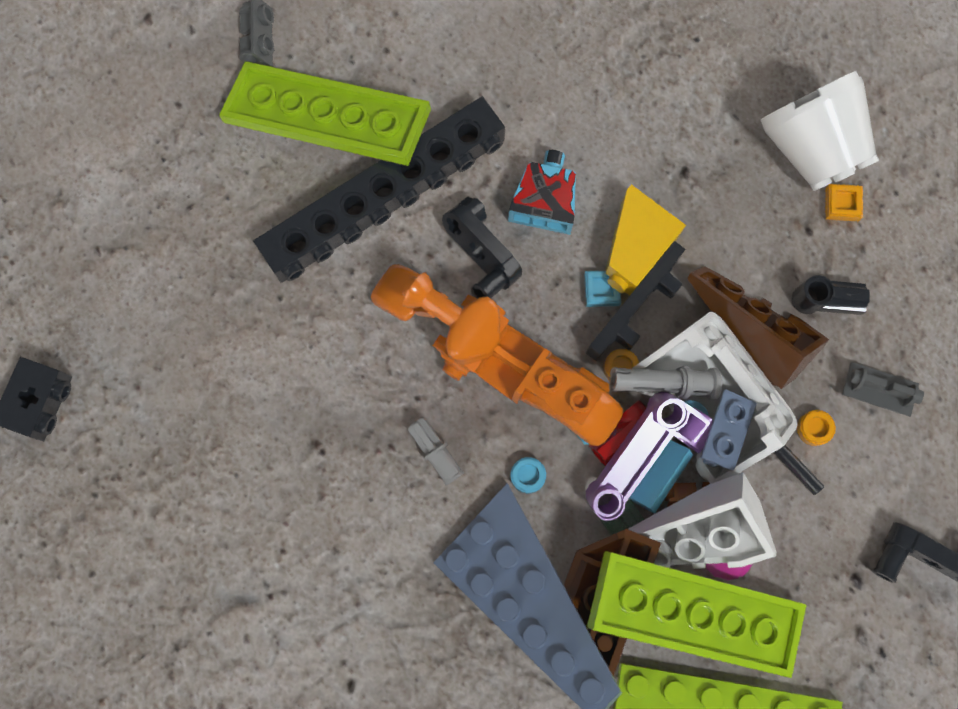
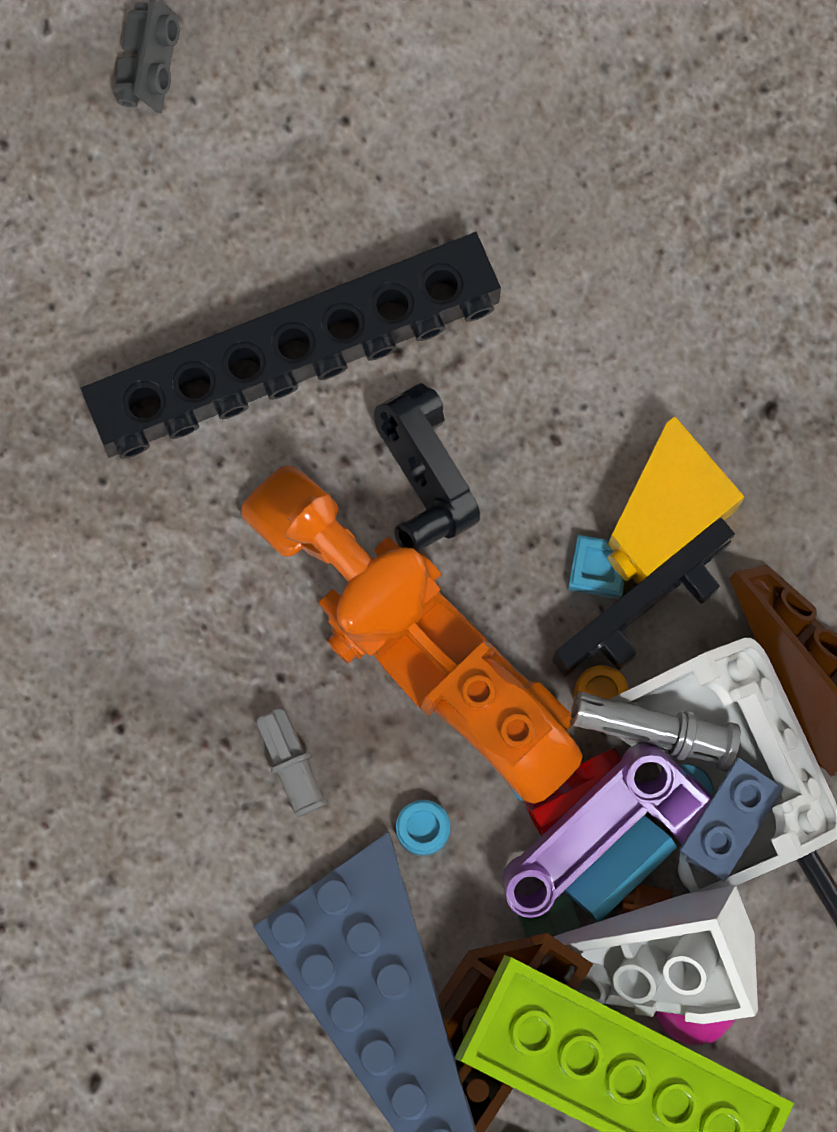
camera: 10 degrees right, 0 degrees up
(326, 112) = (230, 209): lime plate -> none
(545, 195) = (541, 404): torso -> none

